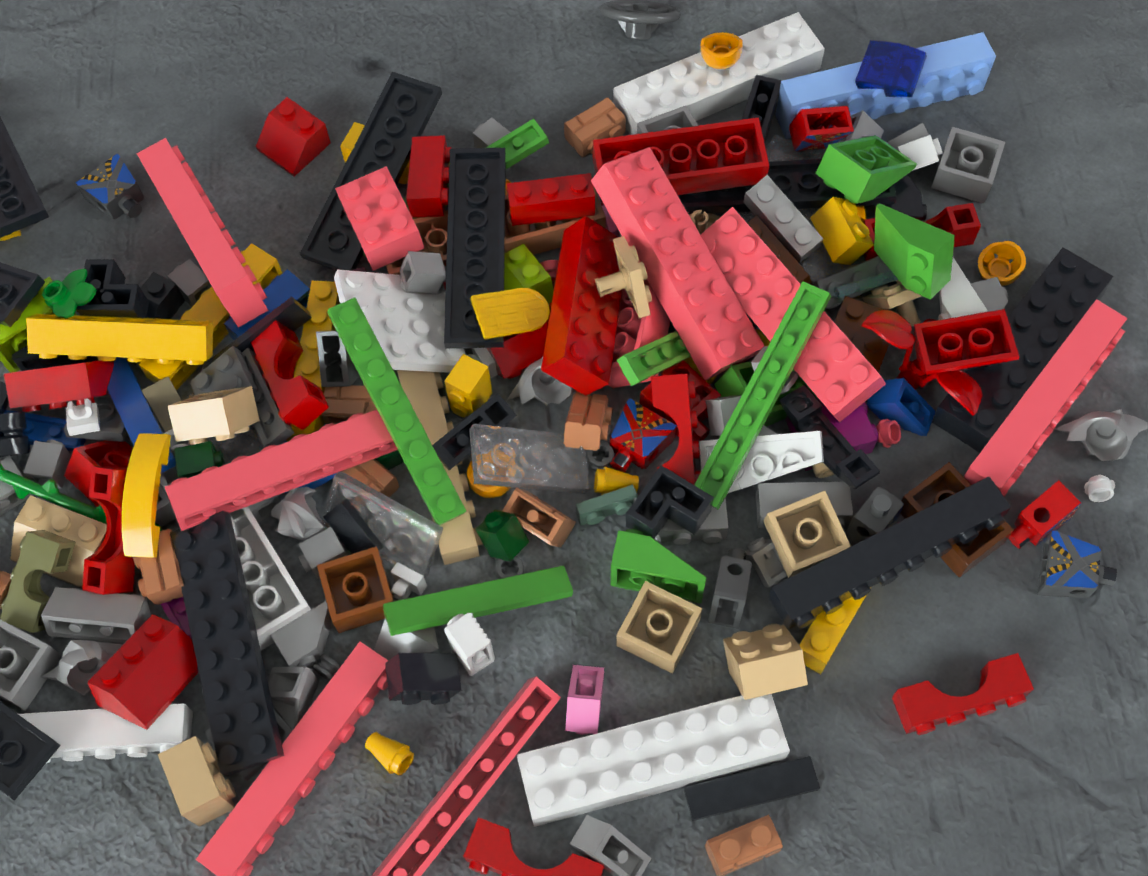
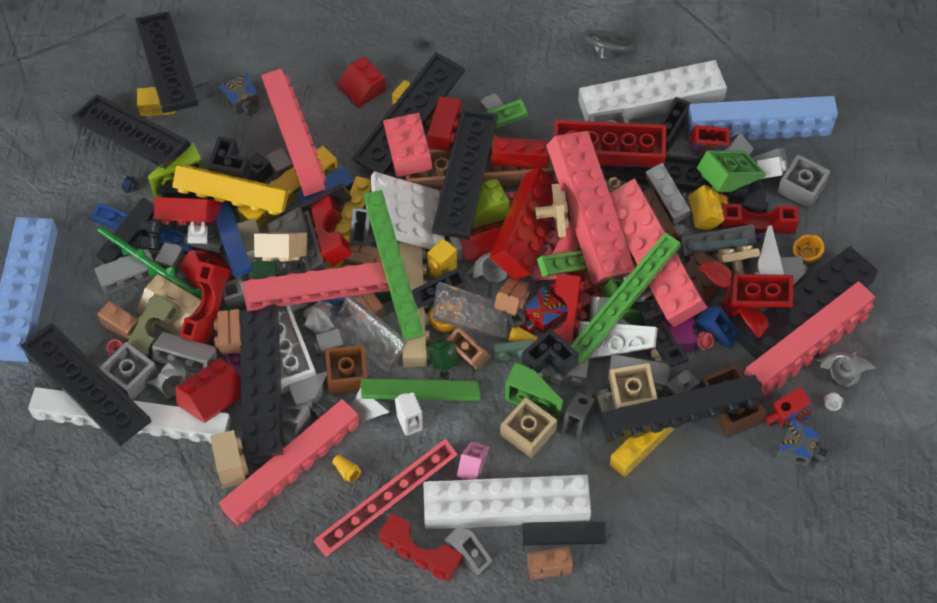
camera: 10 degrees right, 5 degrees down
(69, 293) = (204, 155): green plate -> none
(141, 493) = (227, 285): yellow slope -> none
(351, 528) = (350, 331): black tile -> none
(406, 581) = (378, 370): white tile -> none
(423, 272) = (428, 183): light grey brick -> none
(423, 677) = (376, 427): black brick -> none
(510, 312) = (478, 218): yellow window -> none
(595, 123) = (562, 109): nougat brick -> none
(721, 56) = (655, 80): light orange helmet -> none
(765, 661) = (588, 458): tan brick -> none
(891, 68) = (763, 108): clear blue slope -> none
(913, 251) = (746, 228): bright green slope -> none
(924, 706) = (684, 508): red arch -> none

